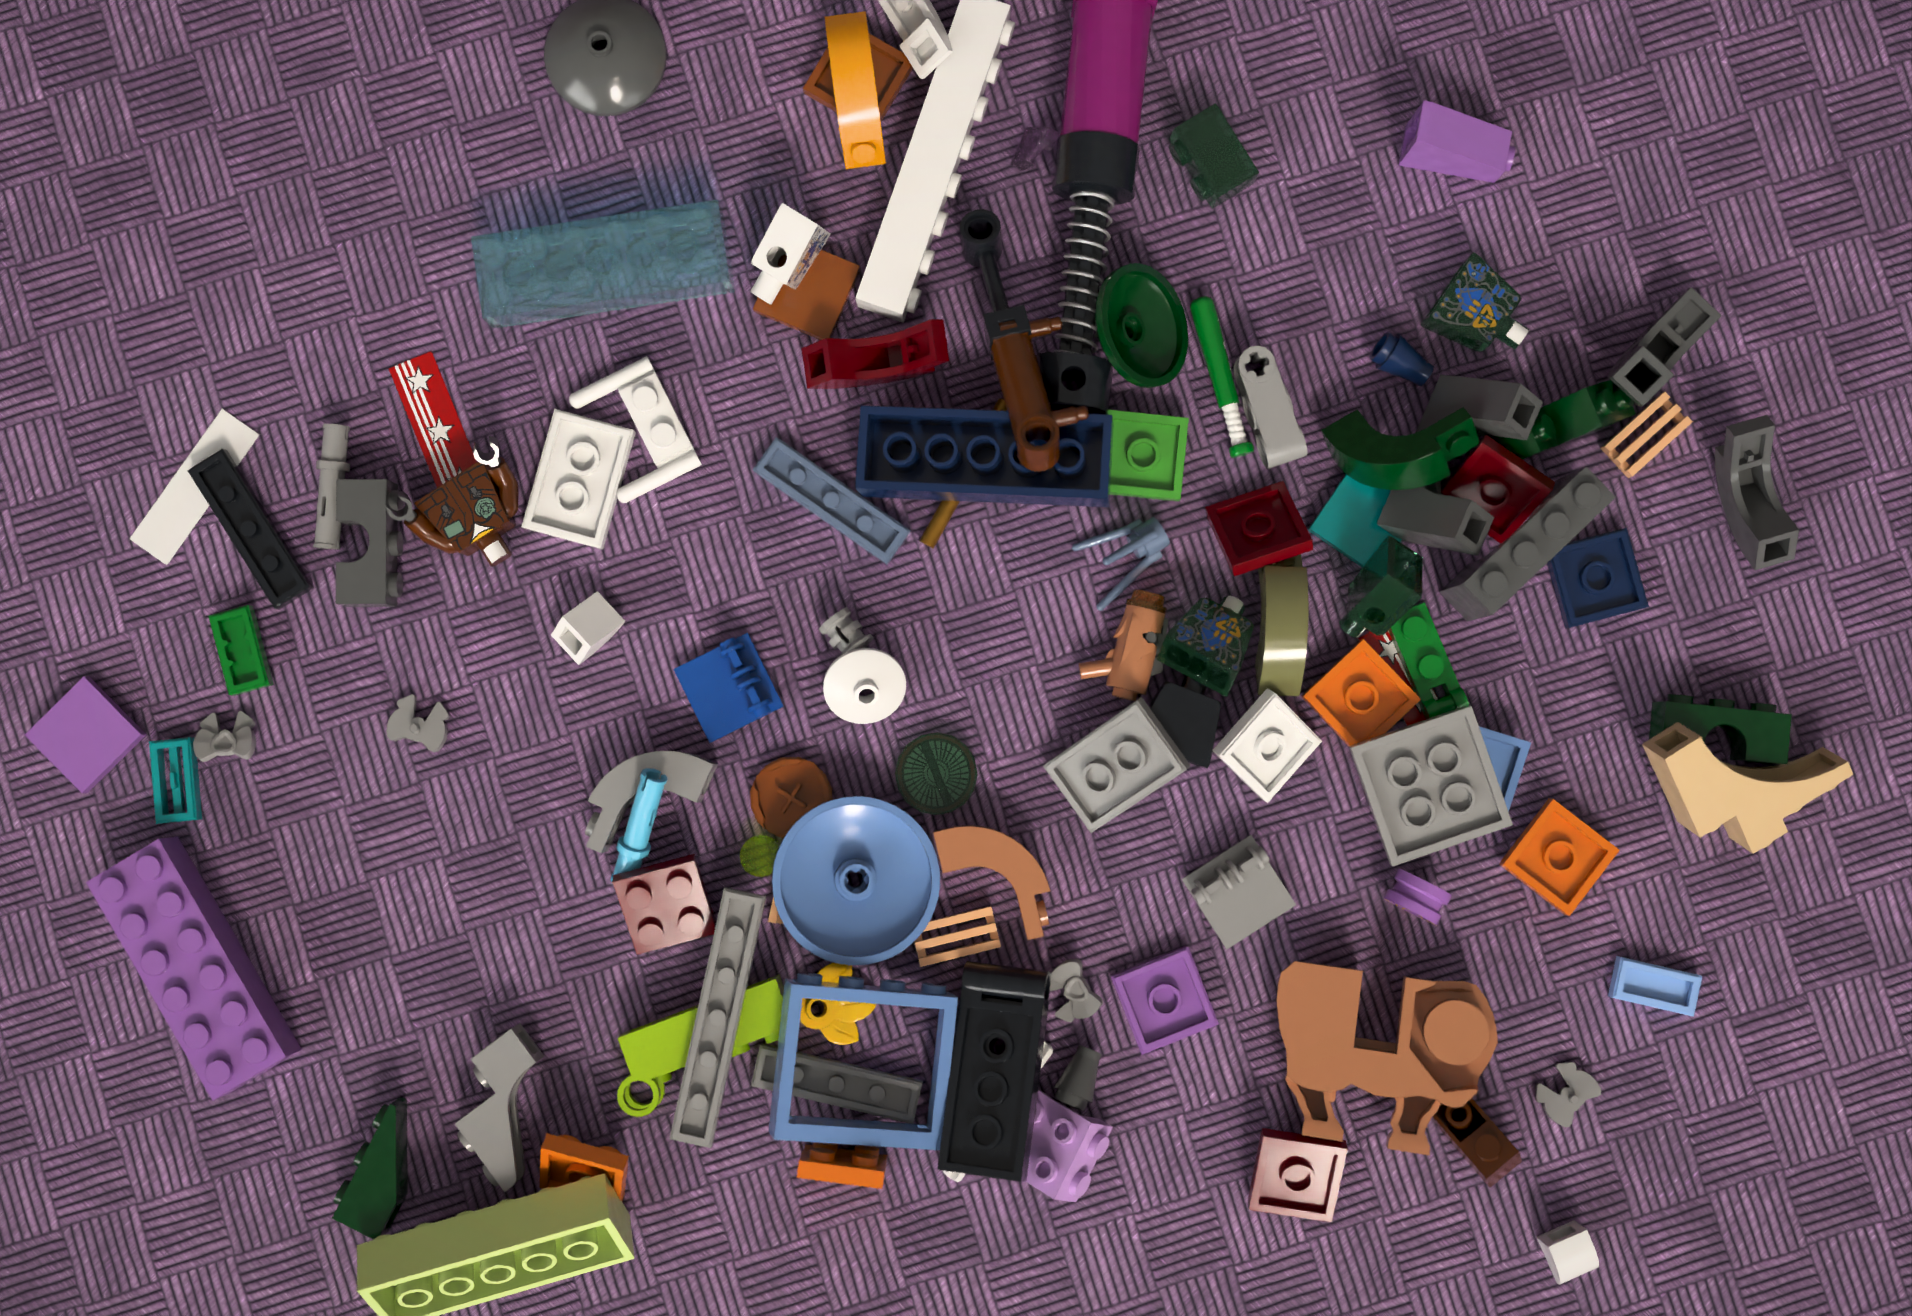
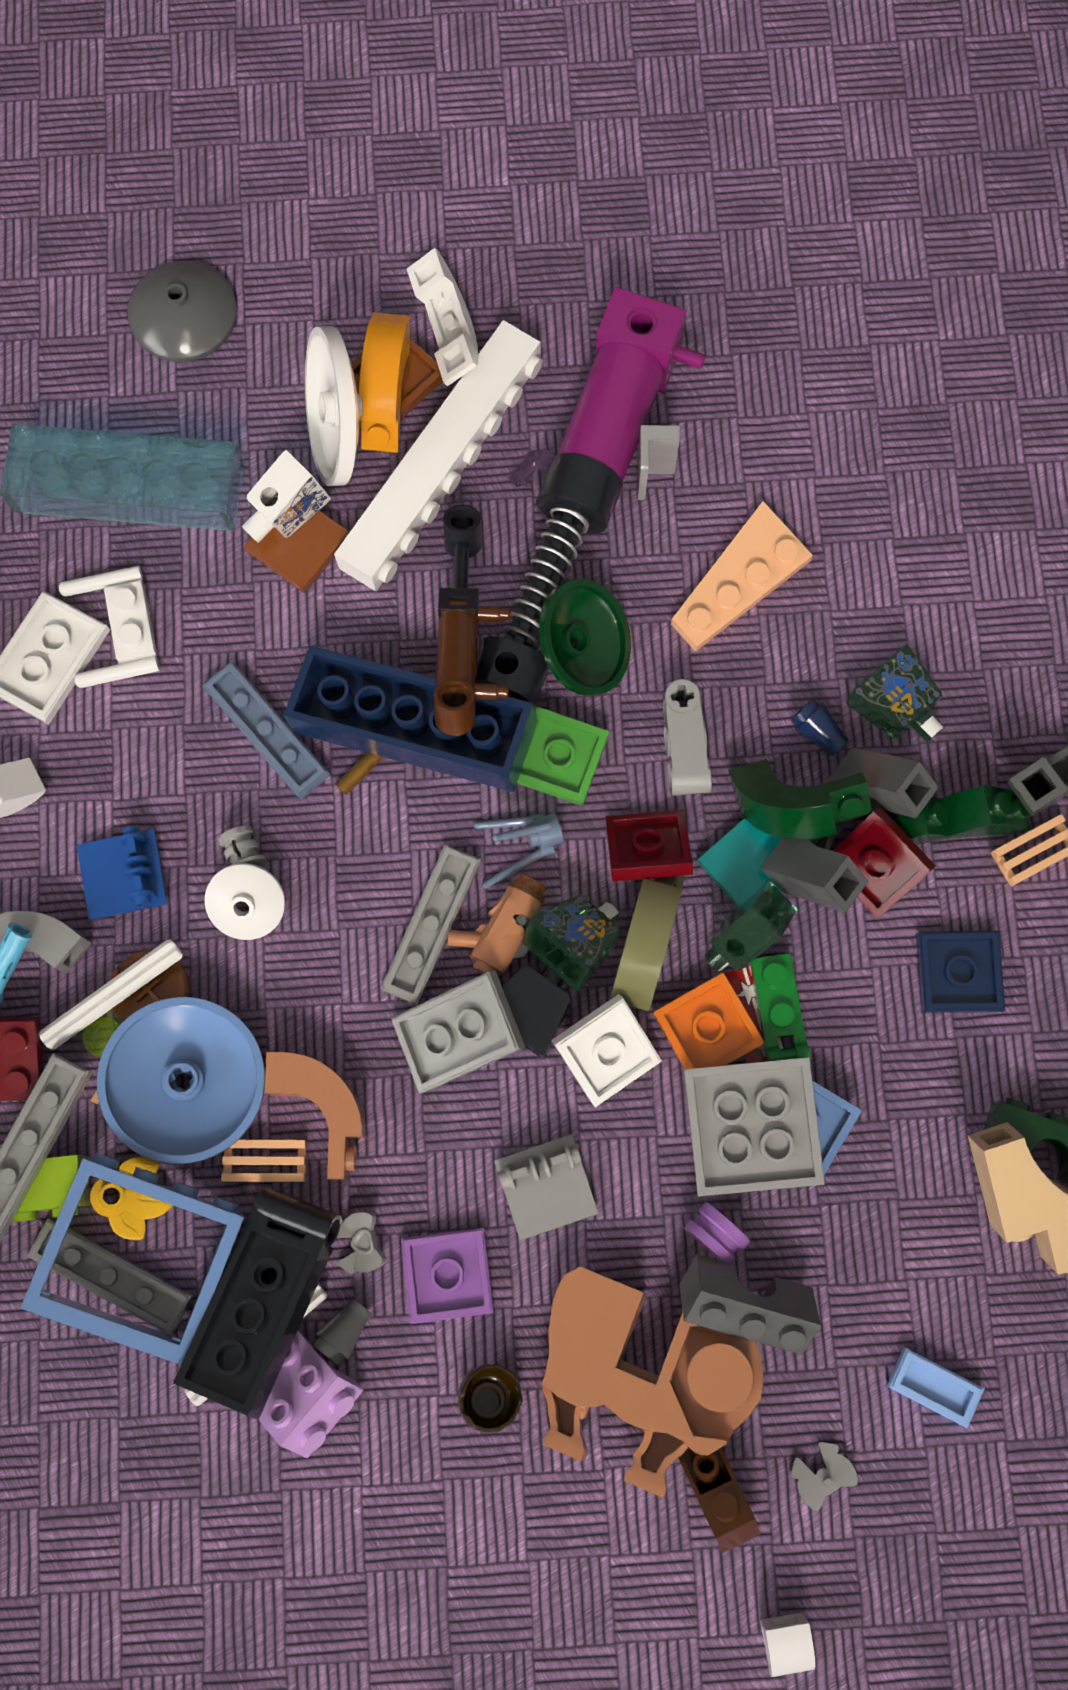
camera: 15 degrees right, 10 degrees down
(758, 813) = (110, 994): none -> white axle
(813, 139) = (331, 405): none -> white dish
(852, 1167) = (77, 1353): orange plate -> none
(875, 360) = (337, 614): dark red arch -> none
(936, 773) = (290, 1001): clear green tile -> none
(1057, 660) = (430, 925): none -> light grey tile
(1161, 102) = (656, 453): none -> light grey panel
(1212, 156) = (689, 511): clear green brick -> none
(1218, 366) = (649, 695): green piece -> none
(1237, 1104) = (489, 1397): none -> dark brown hair
(1288, 206) = (746, 572): none -> light nougat wing
(1297, 1175) = (530, 1487): plate -> none
(1436, 961) = (718, 1301): none -> dark grey arch
(1455, 144) = (912, 548): medium lavender slope -> none
(1494, 579) = (897, 916): dark grey arch -> none
(1559, 857) = (866, 1231): orange plate -> none

